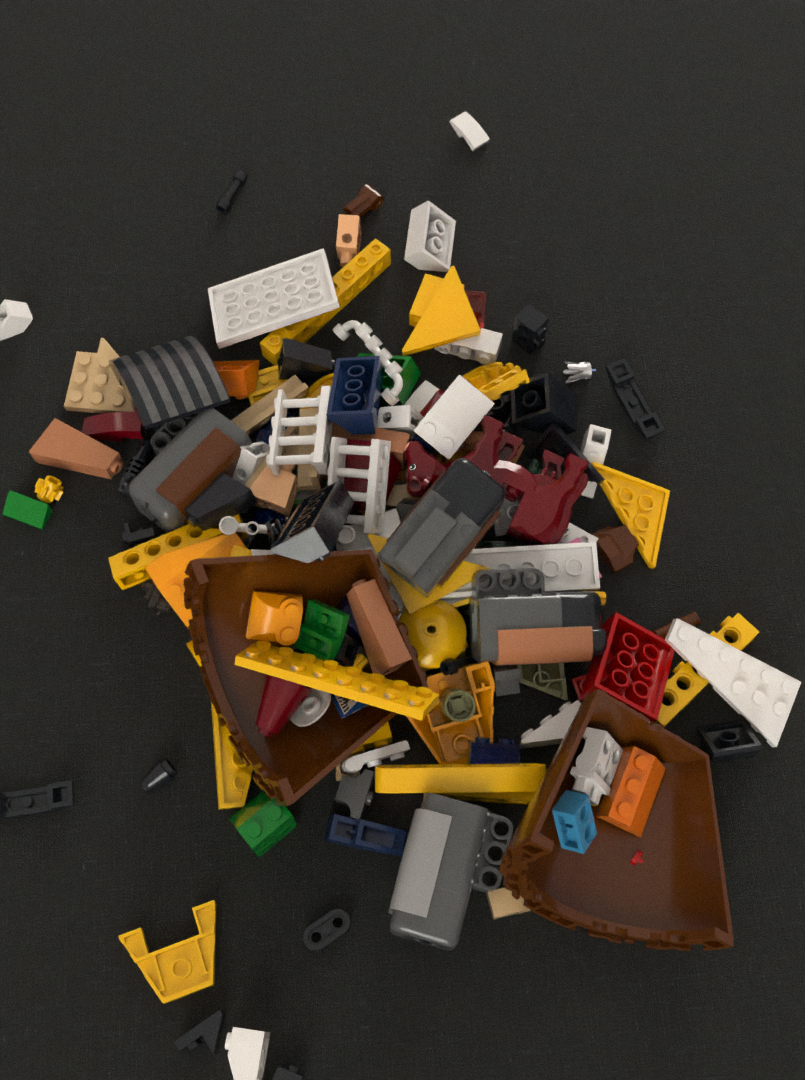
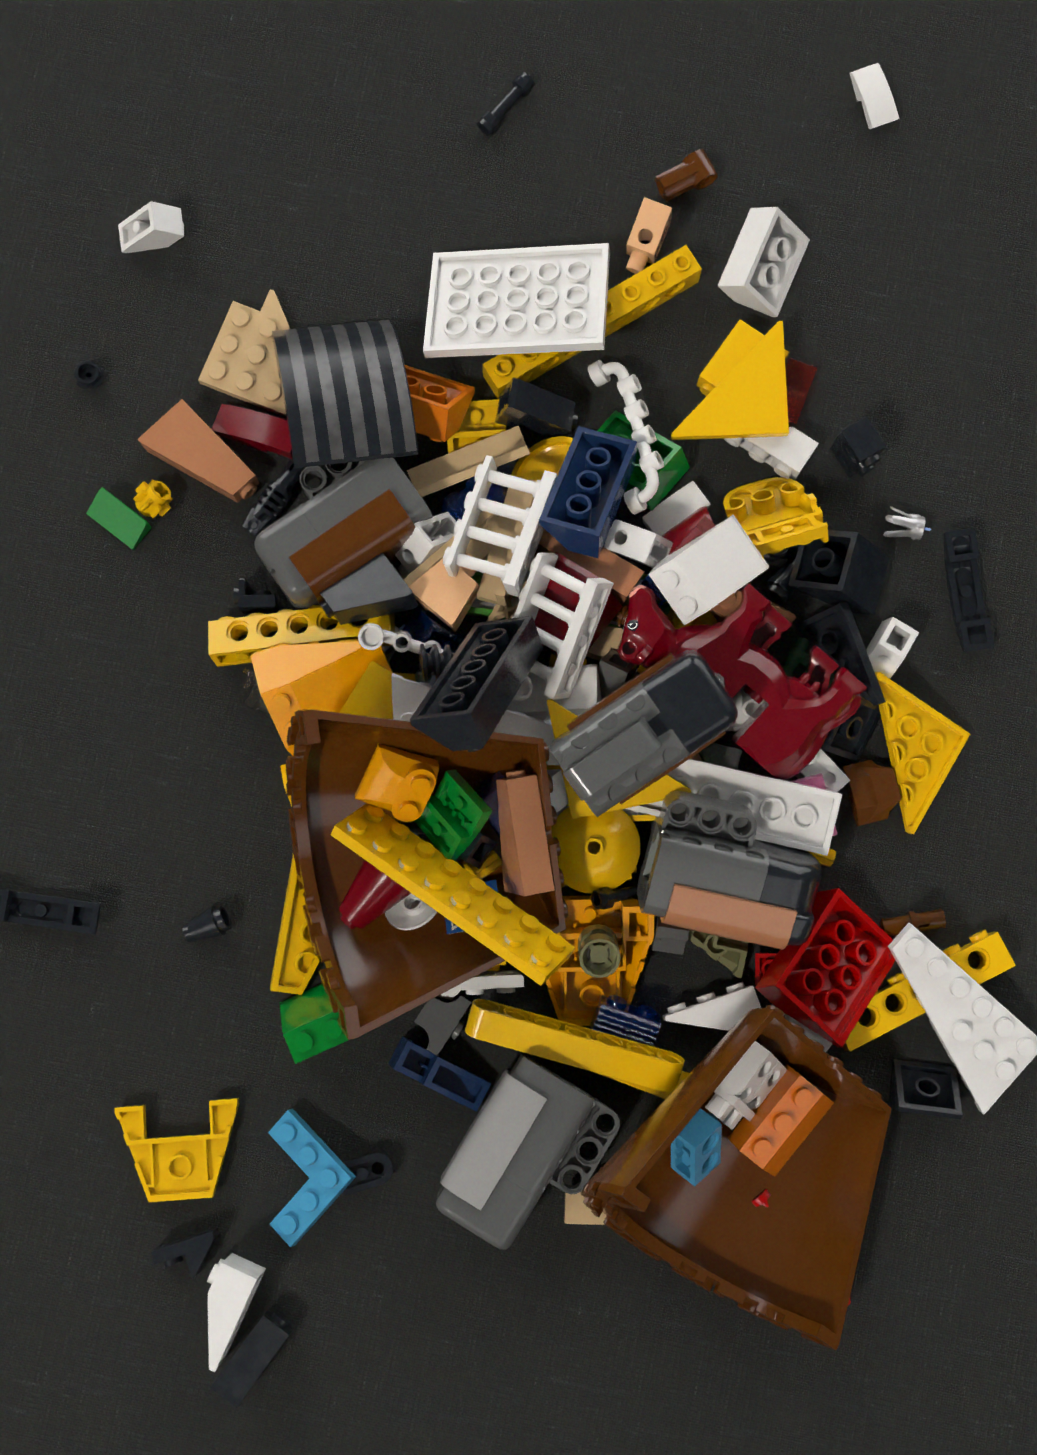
camera: 15 degrees right, 15 degrees up
(300, 944) = (325, 1171): none -> dark azure plate
(588, 508) = (852, 735): none -> black slope

